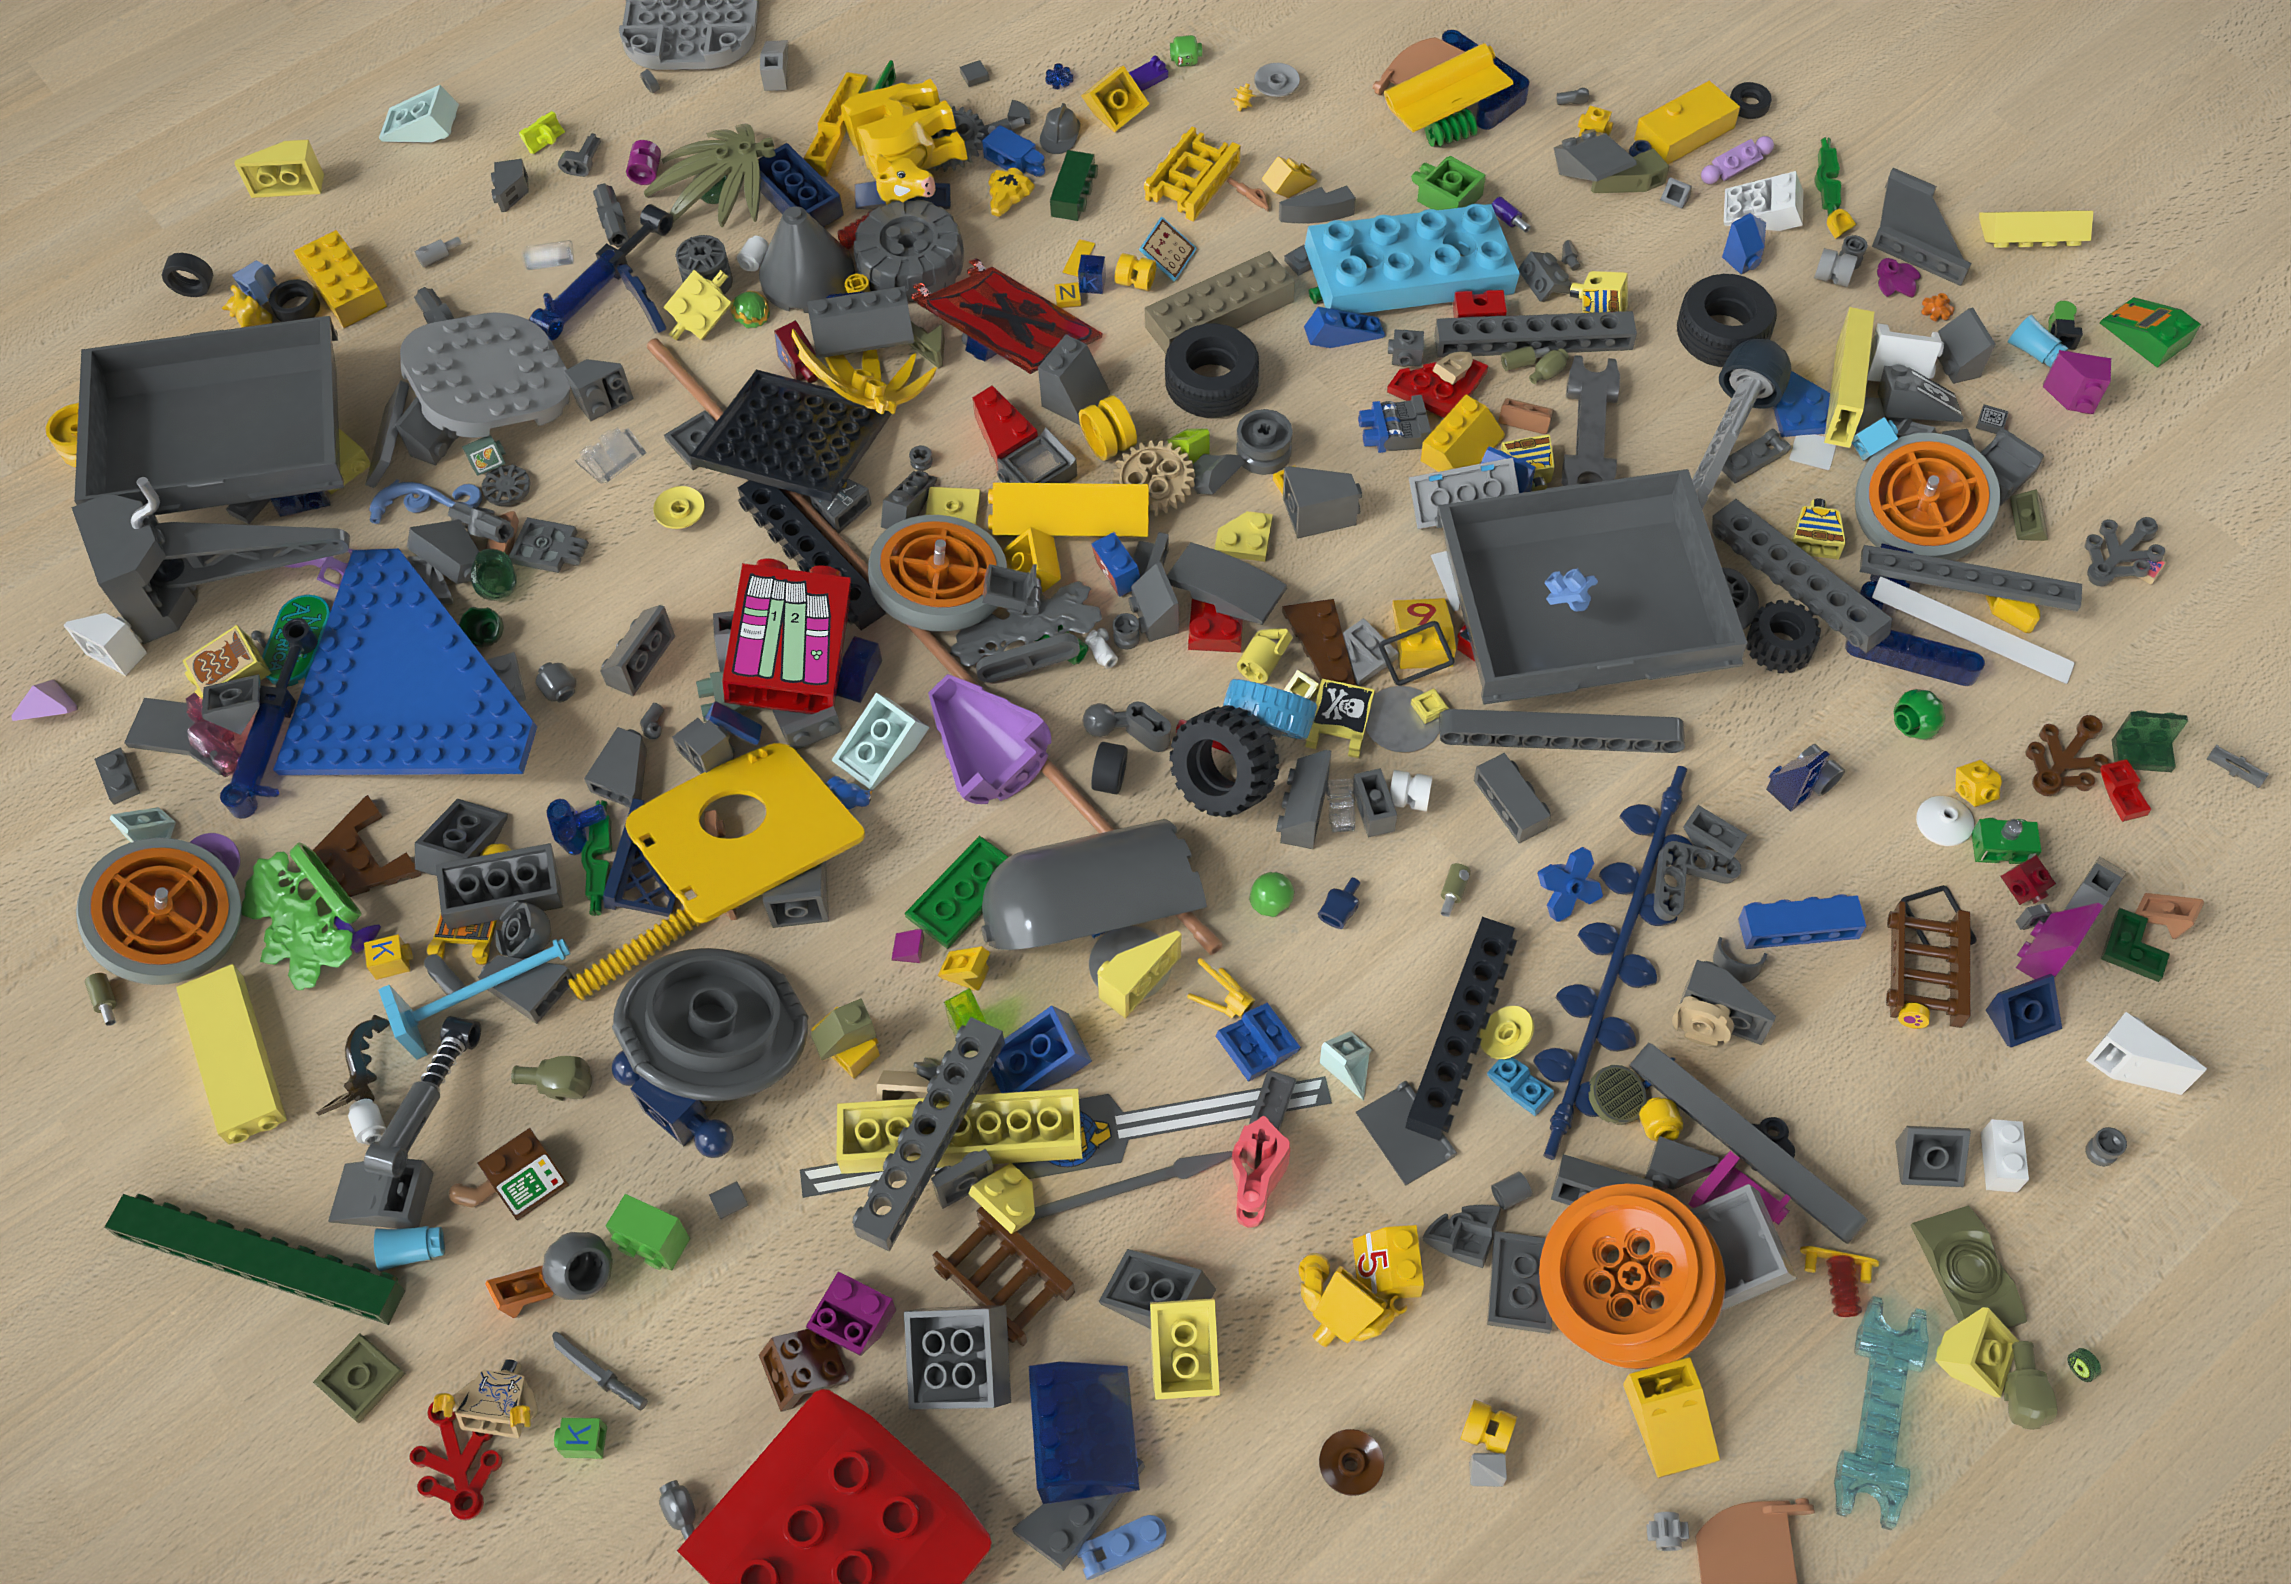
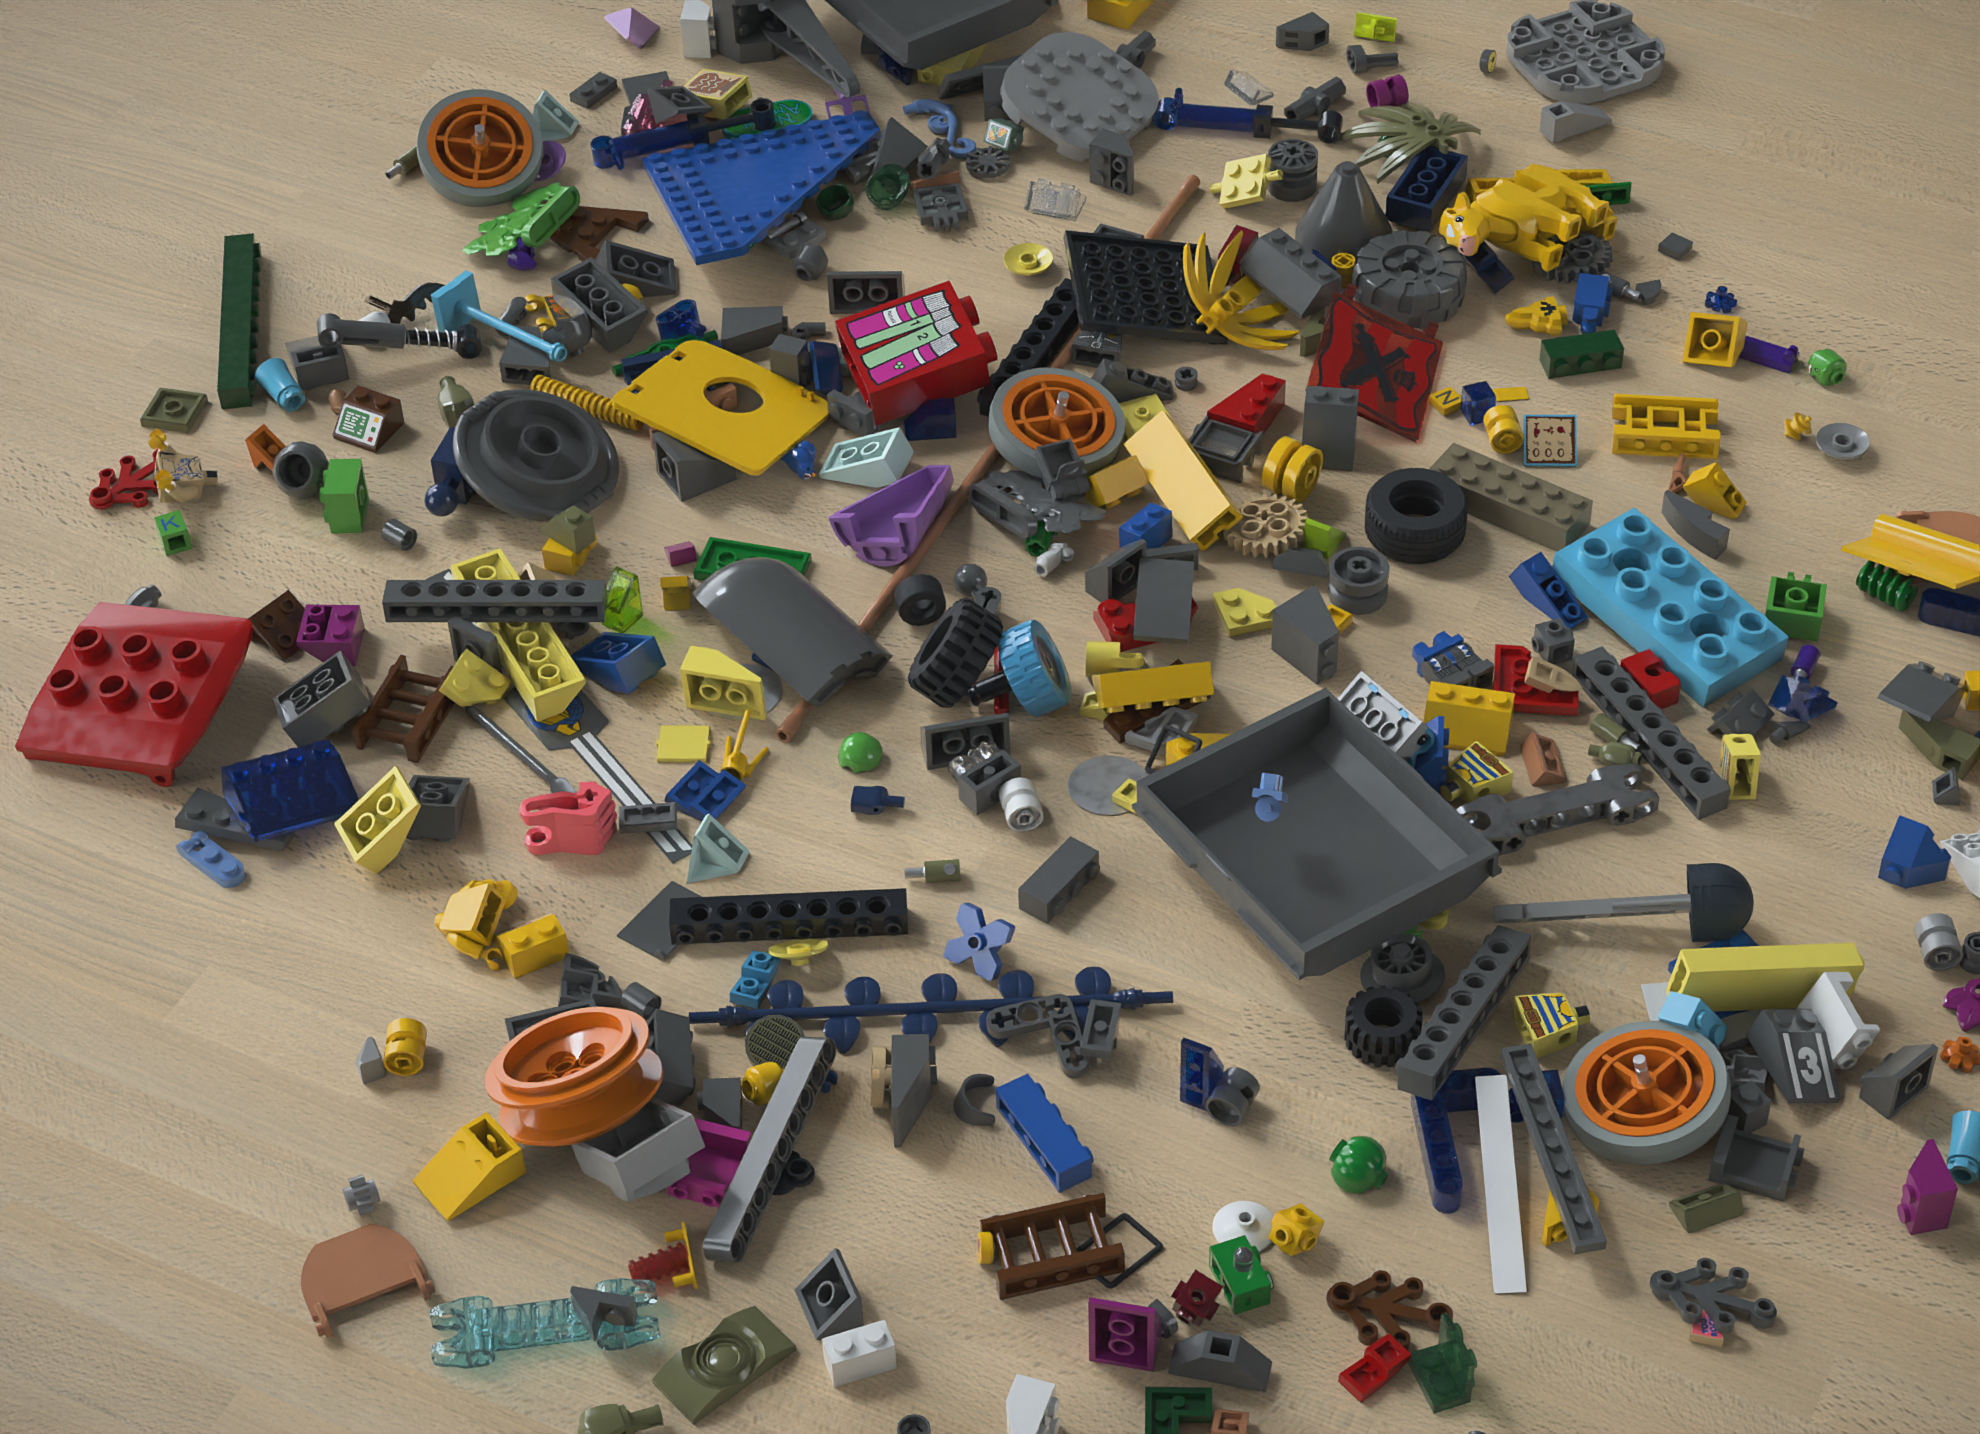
camera: 65 degrees right, 15 degrees down
(231, 1055) = (391, 239): light yellow brick -> none
(388, 956) = (512, 279): yellow brick -> none
(435, 251) = (1199, 26): light grey piece -> none
(606, 1379) = (226, 529): dark grey sword -> none
(638, 290) = (1240, 137): dark blue tile -> none
(750, 309) = (1274, 216): bright green hair -> none
(1059, 130) = (1652, 324): dark grey piece -> none
(1126, 631) = (1076, 566): dark grey wheel -> none
(1177, 1038) = (683, 743): none -> light yellow piece
(1322, 632) = (1154, 685): none -> yellow slope
(1341, 713) = (1076, 735): flag -> none
(1354, 1446) = (337, 970): reddish brown dish -> none
(1553, 230) = (1799, 700): none -> clear blue slope
(1562, 731) = (1161, 897): dark grey beam -> none
(1727, 296) = (1789, 841): black tyre -> none
(1755, 456) = (1619, 951): dark grey plate -> none
(1911, 1357) = (598, 1306): none -> dark grey slope
(1978, 1352) = (638, 1378): light yellow slope -> none
(1991, 419) = (1825, 1139): tile -> none
(2026, 1011) = (1039, 1335): dark blue slope -> none

